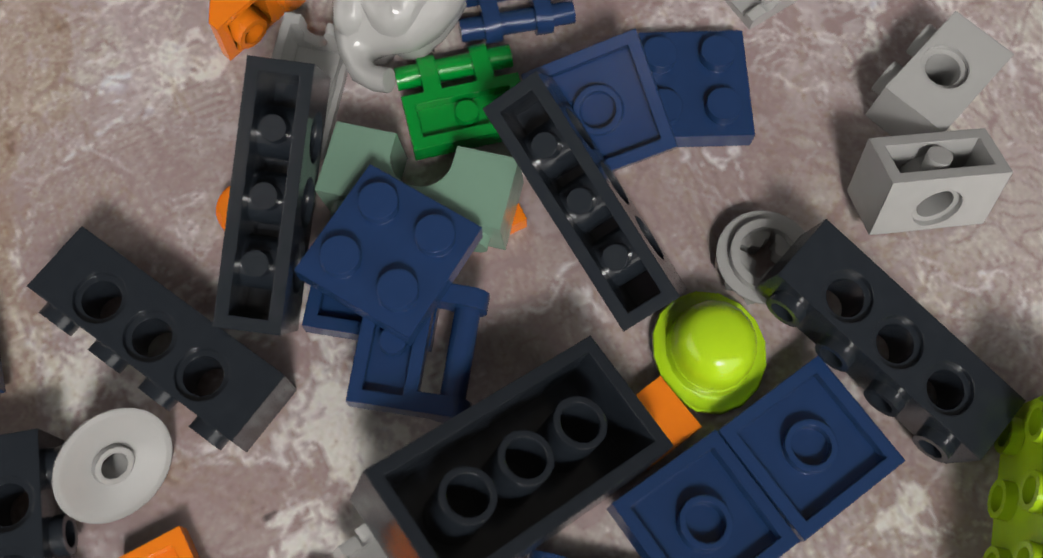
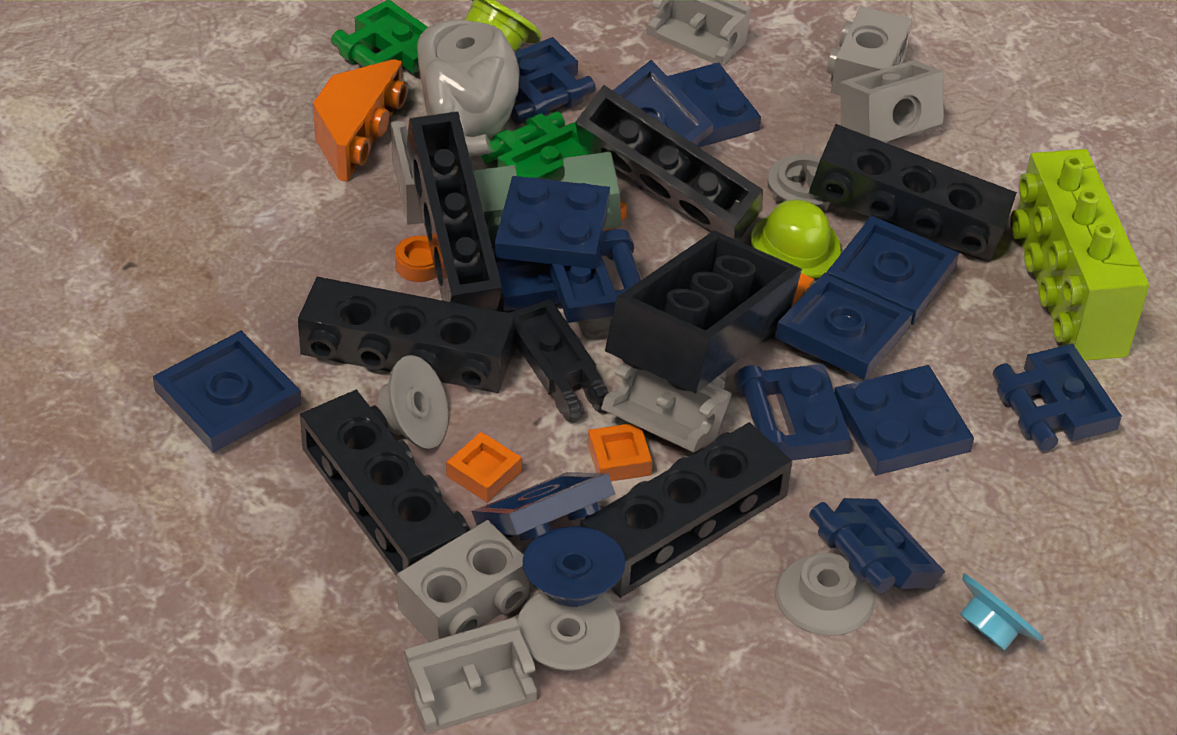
camera: 20 degrees left, 25 degrees down
(324, 435) = (557, 357): none -> black hinge

